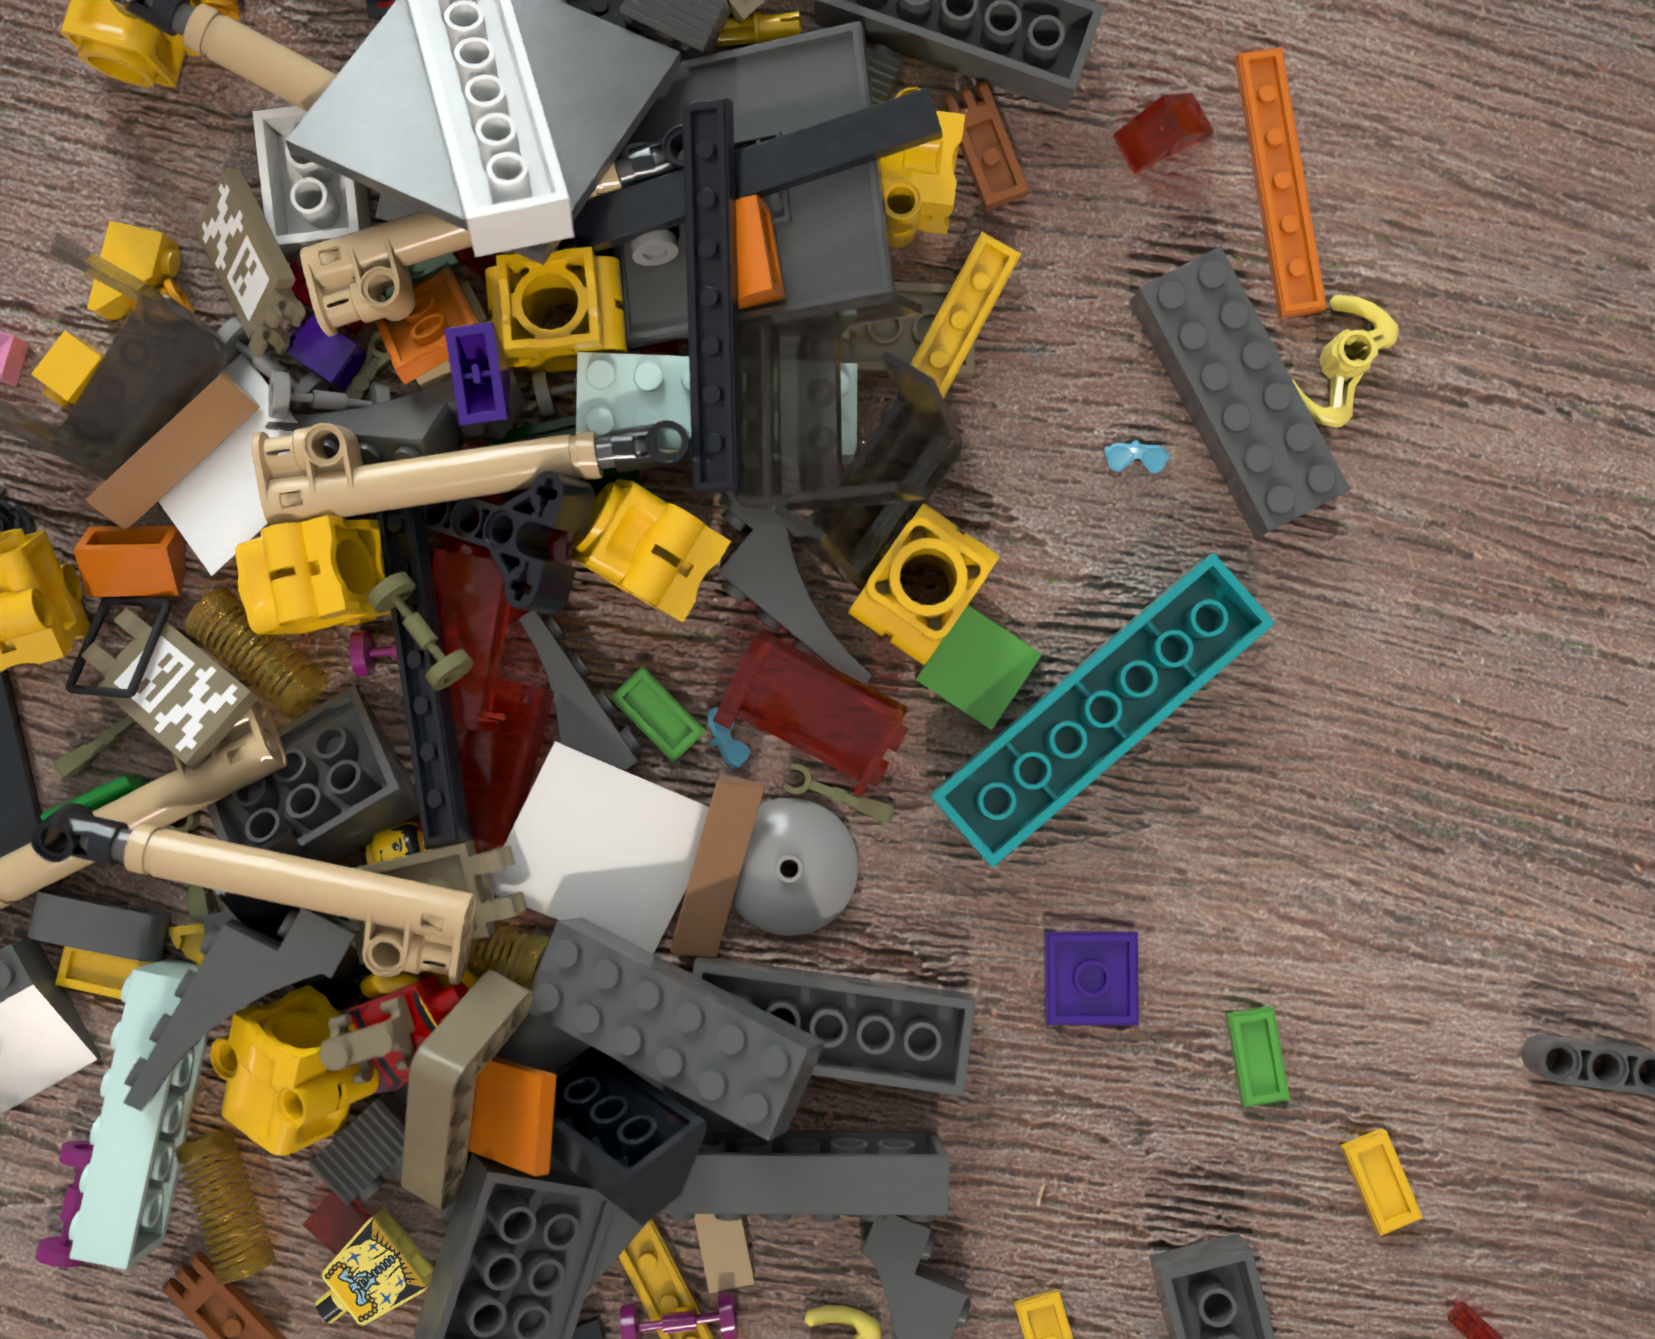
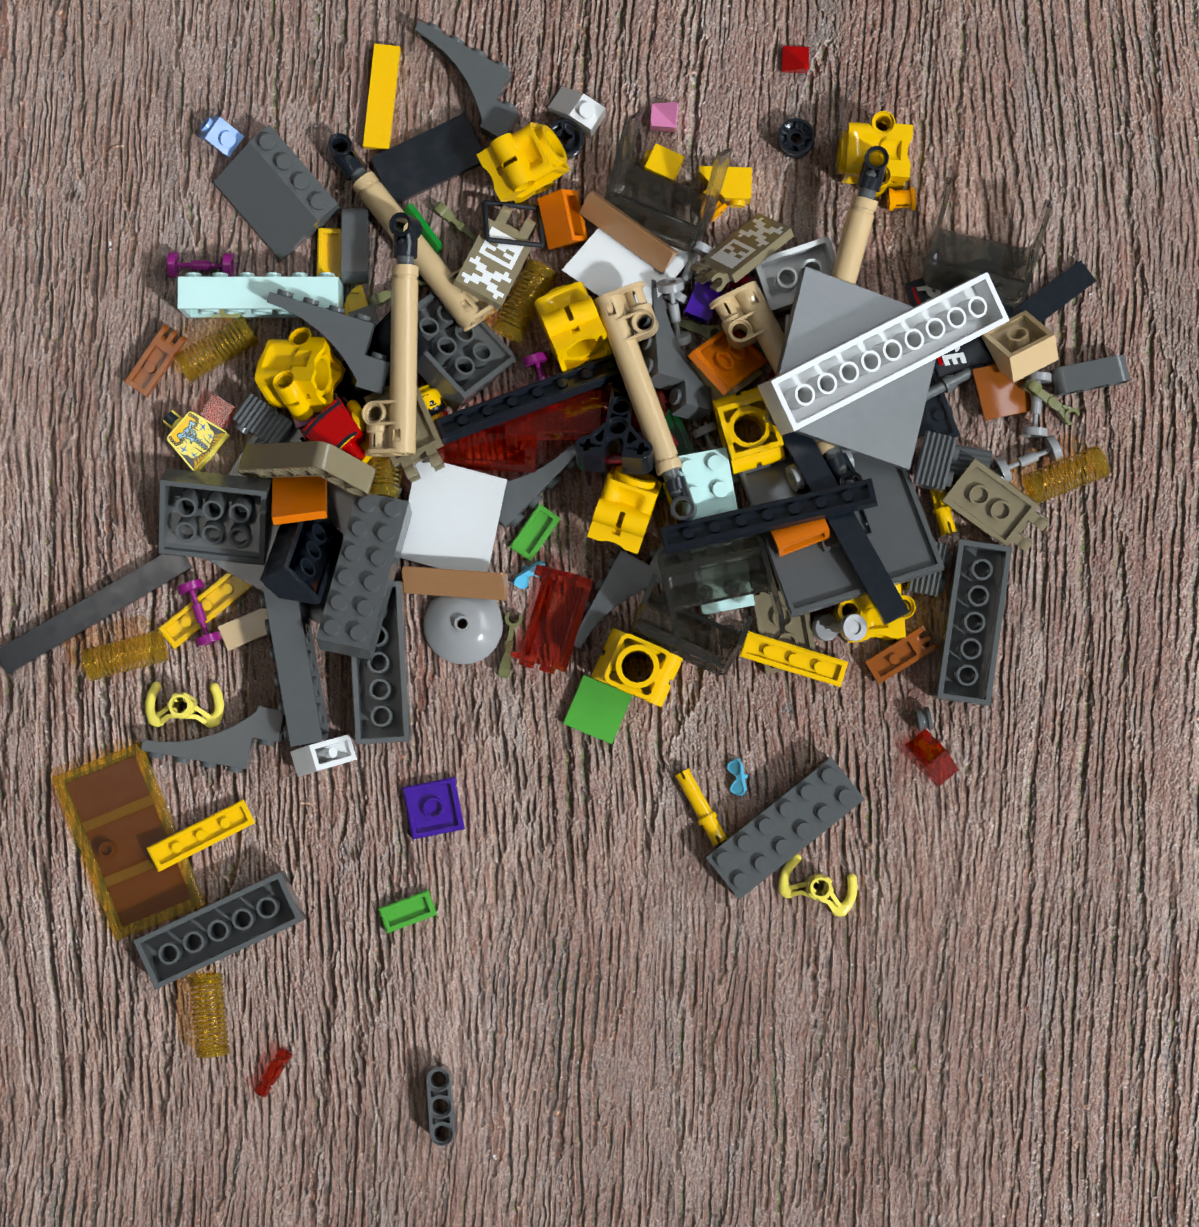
camera: 85 degrees right, 0 degrees up
(63, 143) = (795, 127): none -> black wheel
(369, 1042) = (326, 415): dark tan piece -> none
(392, 594) = (571, 373): olive wheel -> none
(478, 373) = (700, 396): dark purple slope -> none
(933, 198) = (852, 627): none -> light grey wheel
(970, 1150) = (323, 755): none -> white slope
(1099, 130) = (923, 719): none -> dark grey bush
(1101, 709) = (586, 781): teal brick -> none
(1192, 521) = (706, 816): none -> yellow pin
(1280, 183) = (916, 831): orange tile -> none
(1381, 1181) = (350, 995): yellow tile -> none

